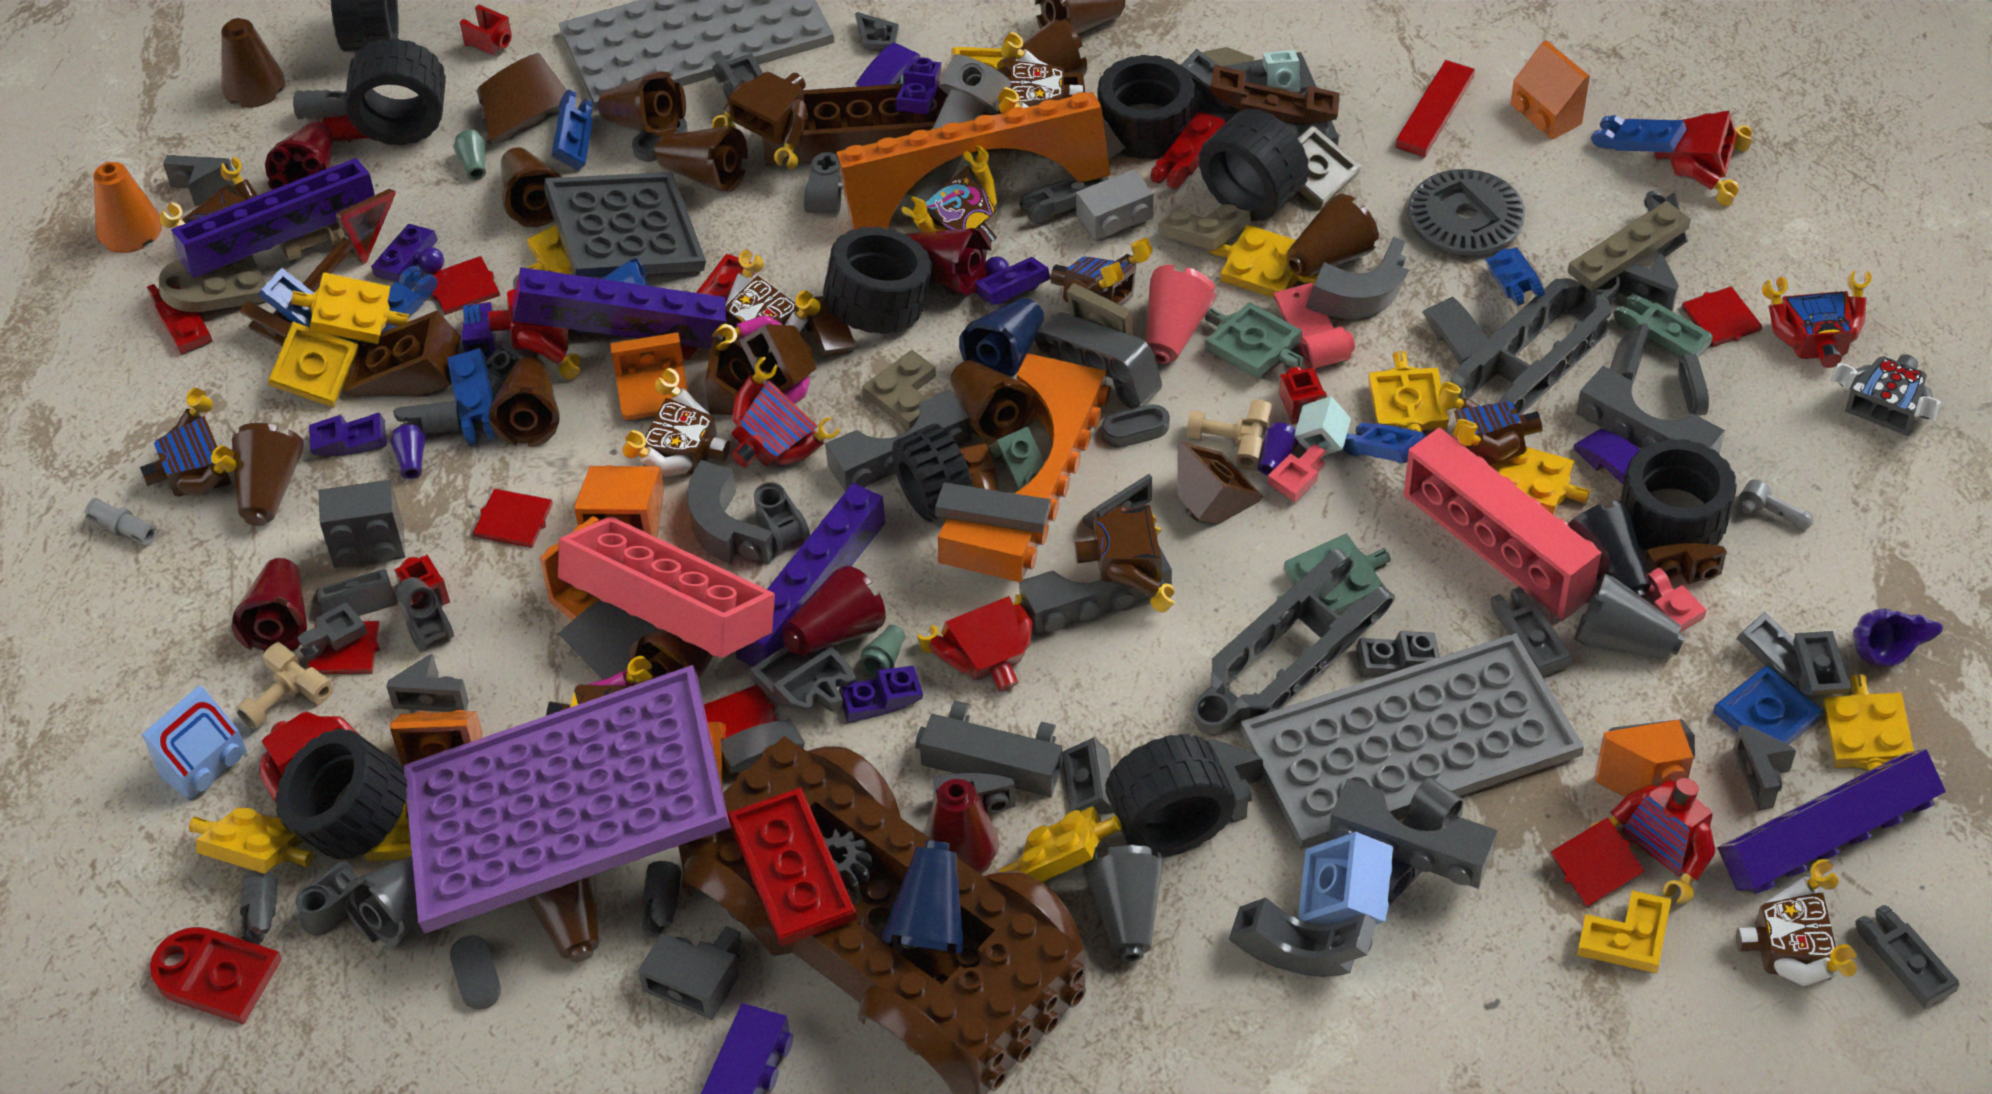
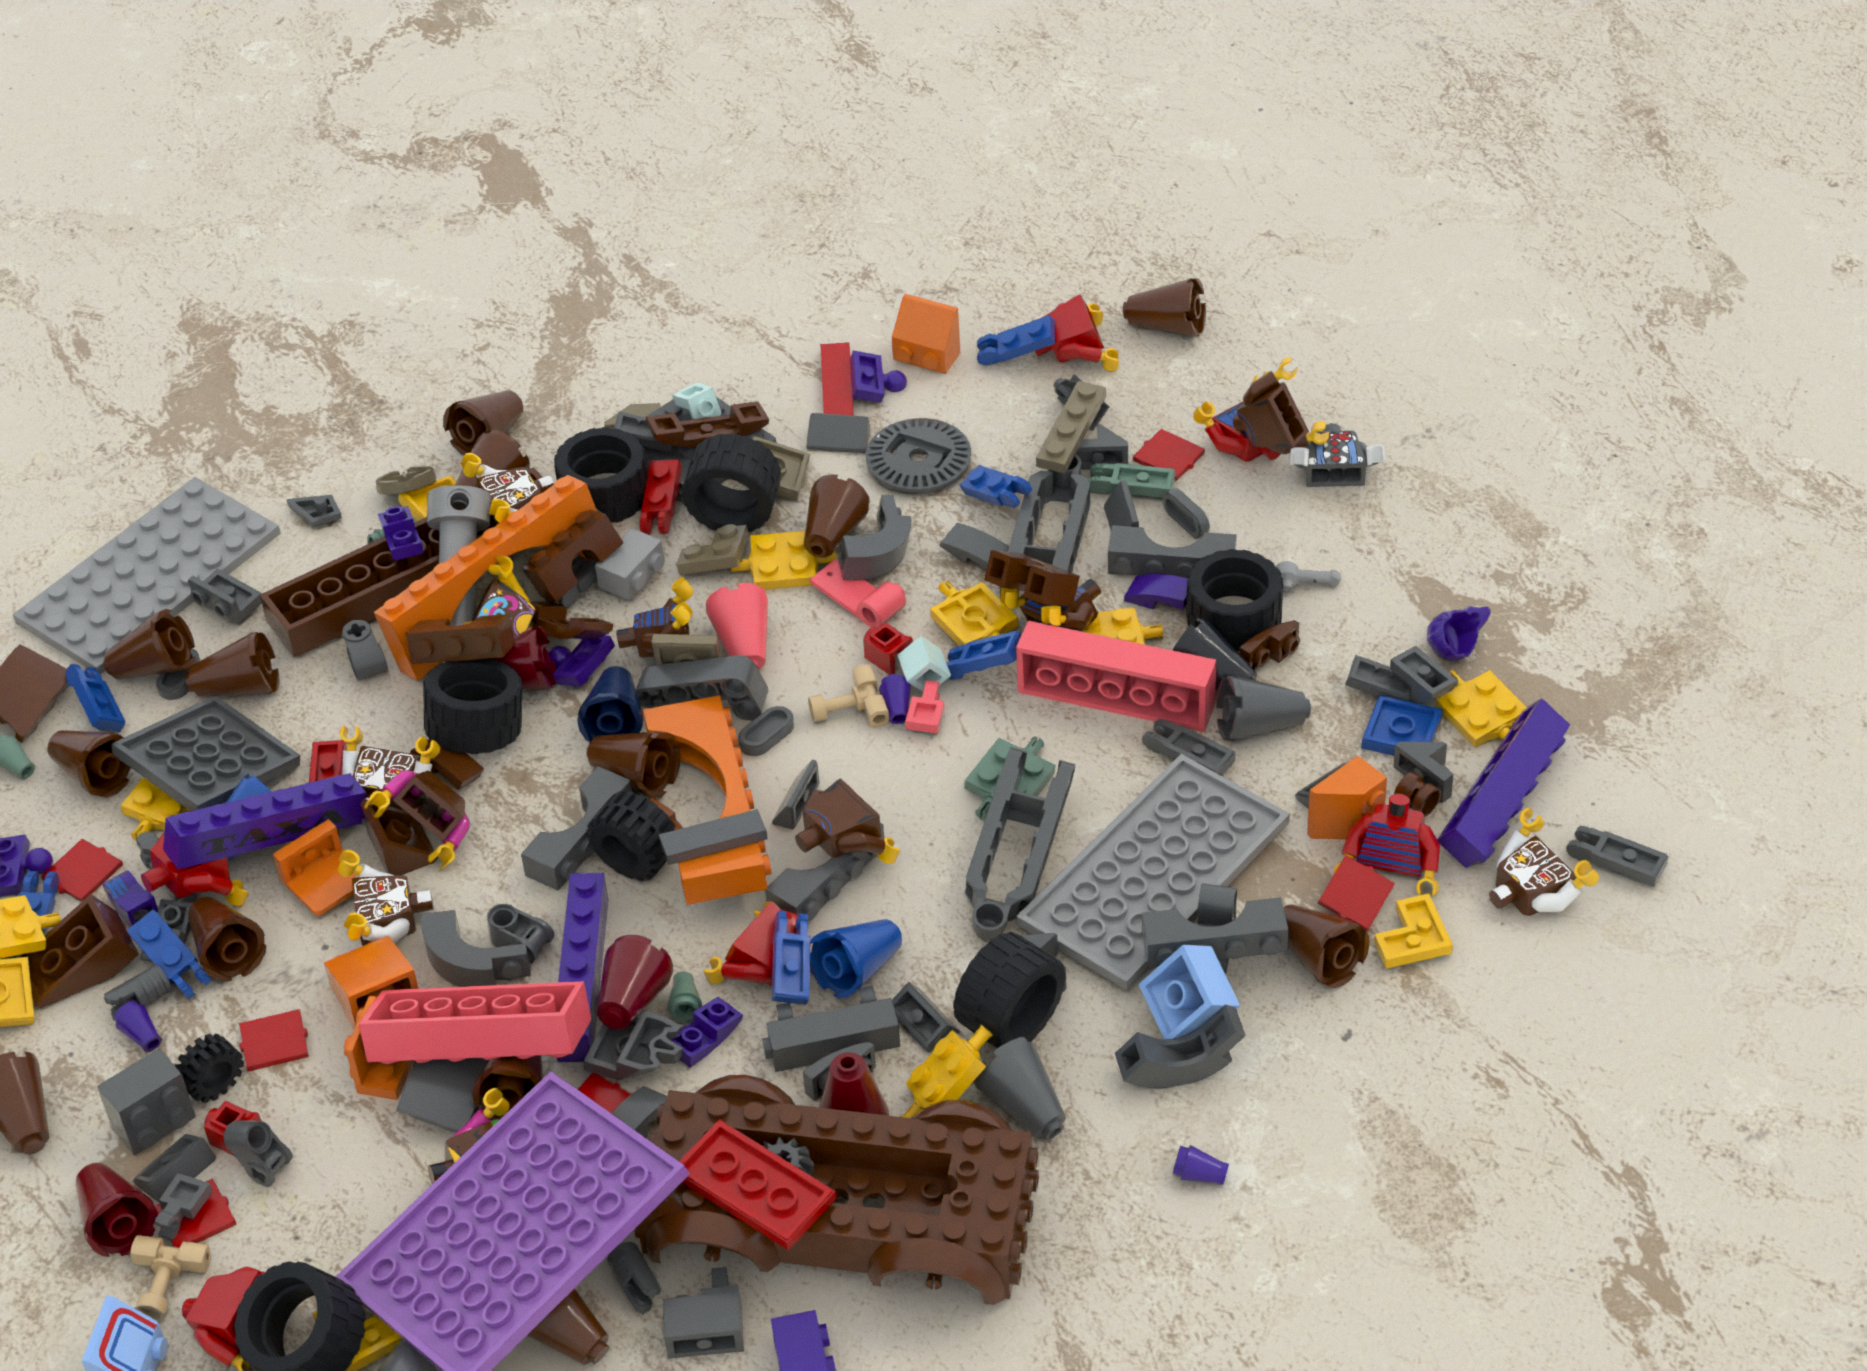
camera: 30 degrees left, 5 degrees down
(340, 437) = (71, 1040): dark purple slope -> none
(422, 689) = (300, 1215): dark grey slope -> none
(428, 504) = (210, 1067): none -> black tyre
(428, 733) = (341, 1241): orange slope -> none
(770, 109) = (281, 603): reddish brown torso -> none
(772, 425) = (461, 859): red torso -> none
(879, 207) = (439, 642): none -> reddish brown arch
(887, 66) = (349, 532): dark purple slope -> none
(897, 386) = (543, 789): dark tan plate -> none
(928, 901) = (888, 1157): dark blue cone -> none
(965, 37) = (414, 479): none -> dark tan tile
(990, 664) = (791, 961): none -> blue hinge
(1009, 235) = (553, 620): none -> reddish brown slope
(1020, 456) = (695, 794): sand green bracket -> none
(1030, 176) = (552, 567): none -> reddish brown arch
(1060, 685) = (852, 954): none -> blue cone
(1212, 485) = (865, 750): reddish brown slope -> none
(1247, 1063) = (1199, 1166): none -> dark purple cone
(1253, 339) = (818, 622): sand green plate -> none
(1387, 656) = (1097, 814): dark grey slope -> none
(1402, 156) = (838, 432): none -> dark grey slope
(1470, 112) = (869, 379): none -> dark purple plate
(1478, 389) = (1038, 579): none -> reddish brown arch
(1523, 899) = (1326, 944): none -> reddish brown cone
(1675, 603) = (1281, 676): coral plate -> none
(1734, 792) = (1422, 796): none -> reddish brown wheel
(1822, 164) = (1169, 308): none -> reddish brown cone
(1837, 322) = (1273, 417): none -> reddish brown torso

